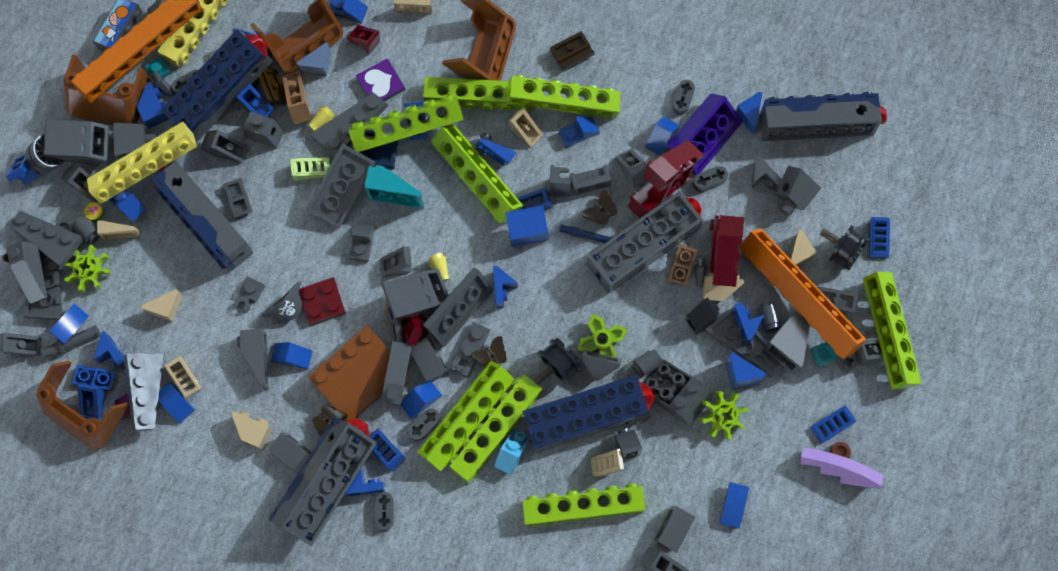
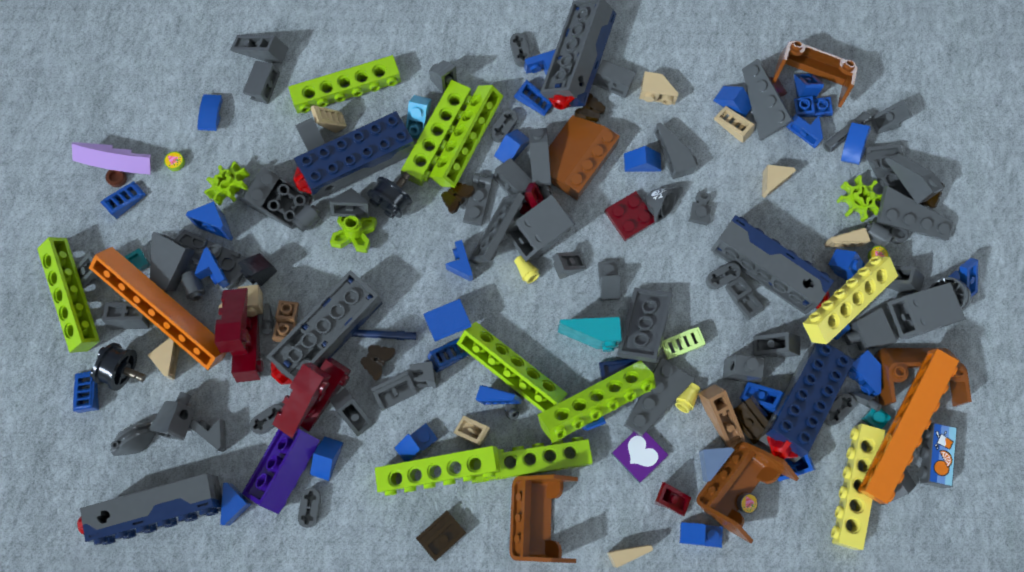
camera: 160 degrees right, 0 degrees up
(249, 218) = (724, 279): none -> dark grey beam
(299, 23) = (747, 503): none -> tile
(476, 492) = (442, 74): none -> dark grey slope
(777, 457) = (174, 161): none -> tile
(836, 187) = (132, 439): none -> dark grey hat

